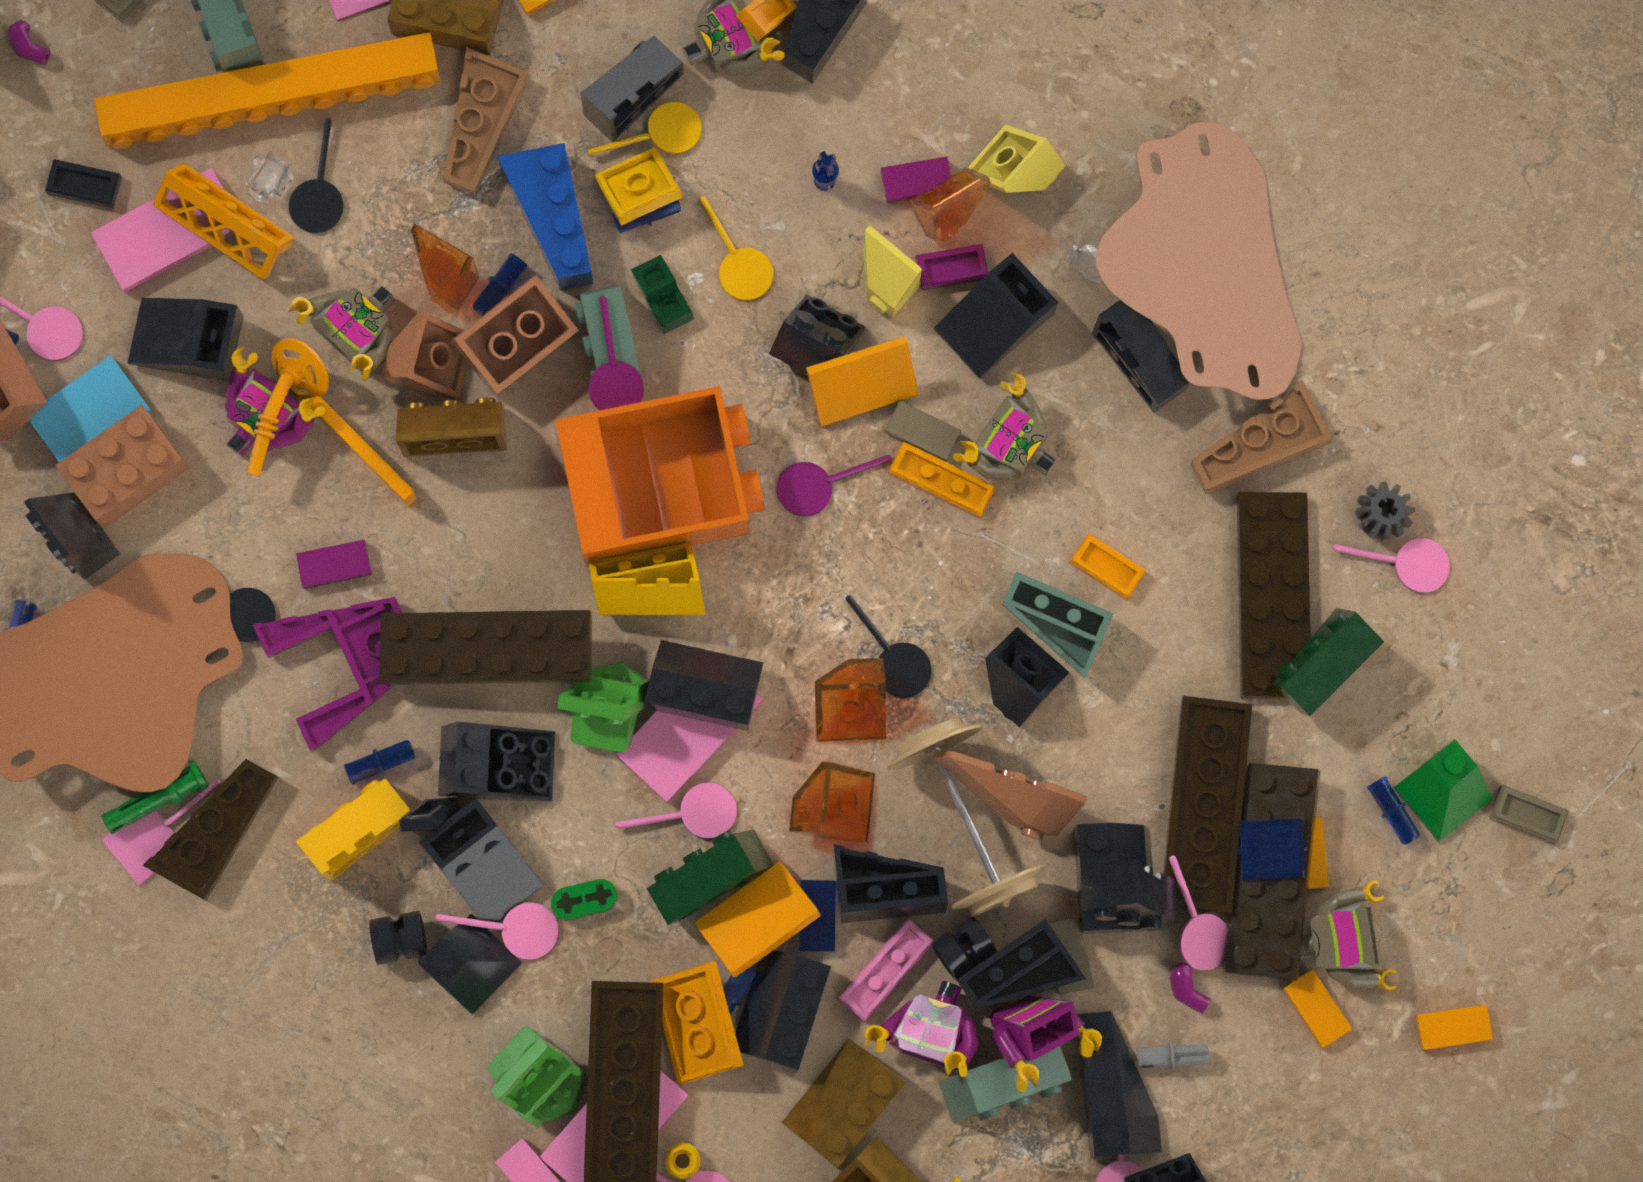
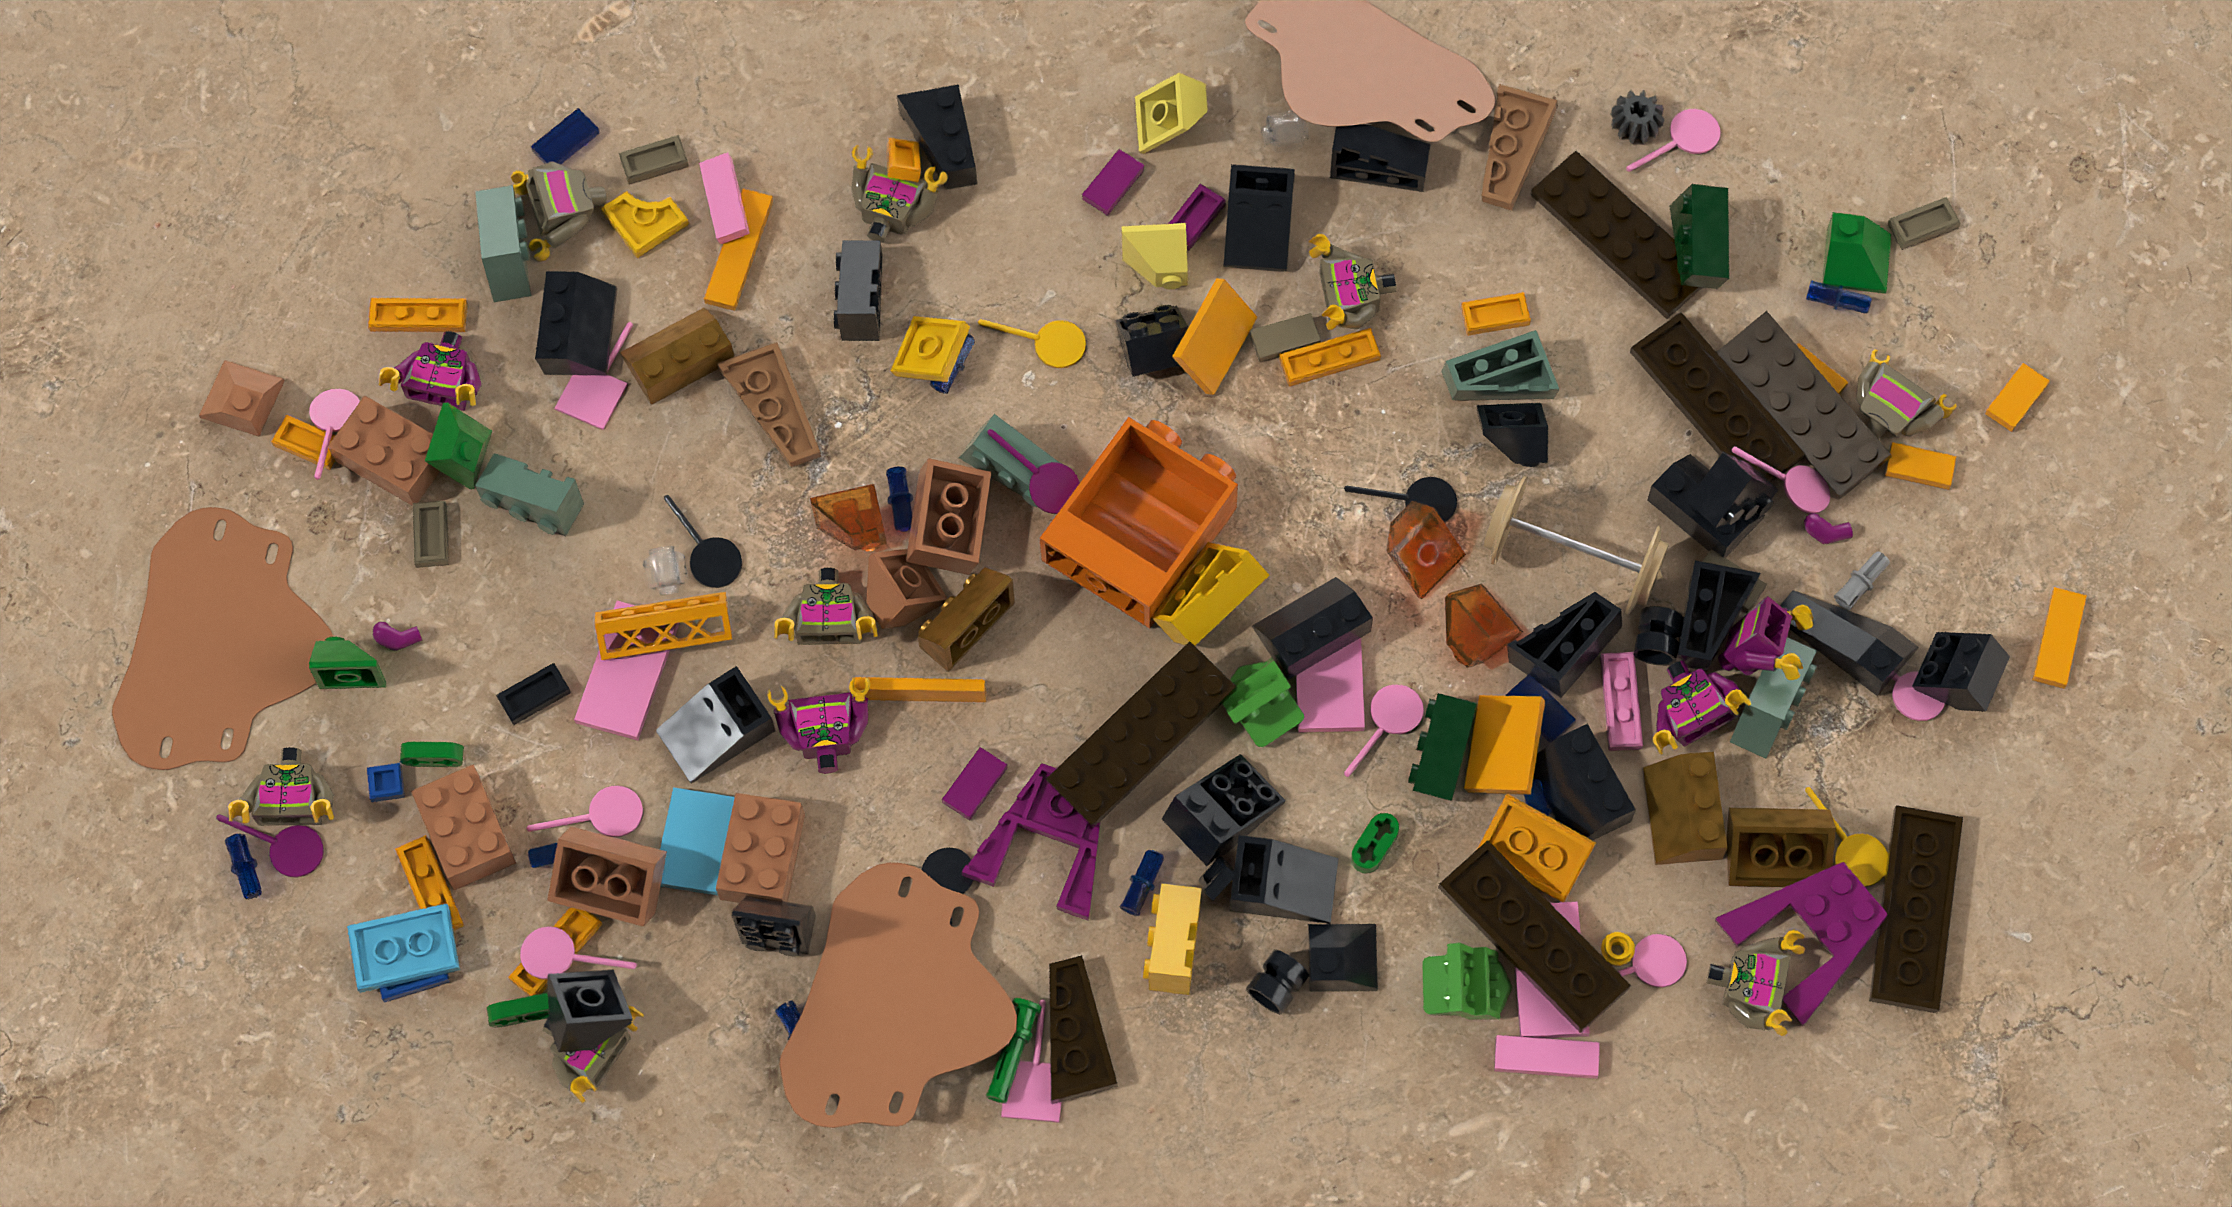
camera: 35 degrees left, 10 degrees down
(267, 90) = (604, 515): light orange brick -> none
(291, 375) = (821, 685): light orange dish -> none
(526, 930) = (1357, 898): bright pink piece -> none
(548, 201) = (883, 414): blue wedge -> none
(662, 294) = (1017, 407): dark green slope -> none
(671, 127) = (910, 295): yellow piece -> none
(807, 488) = (1245, 443): magenta piece -> none
(825, 171) = (1049, 226): clear blue axle -> none
(949, 203) = (1155, 172): clear orange slope -> none
(1028, 805) = (1592, 504): nougat wedge -> none
(1272, 849) = (1790, 387): clear blue piece -> none

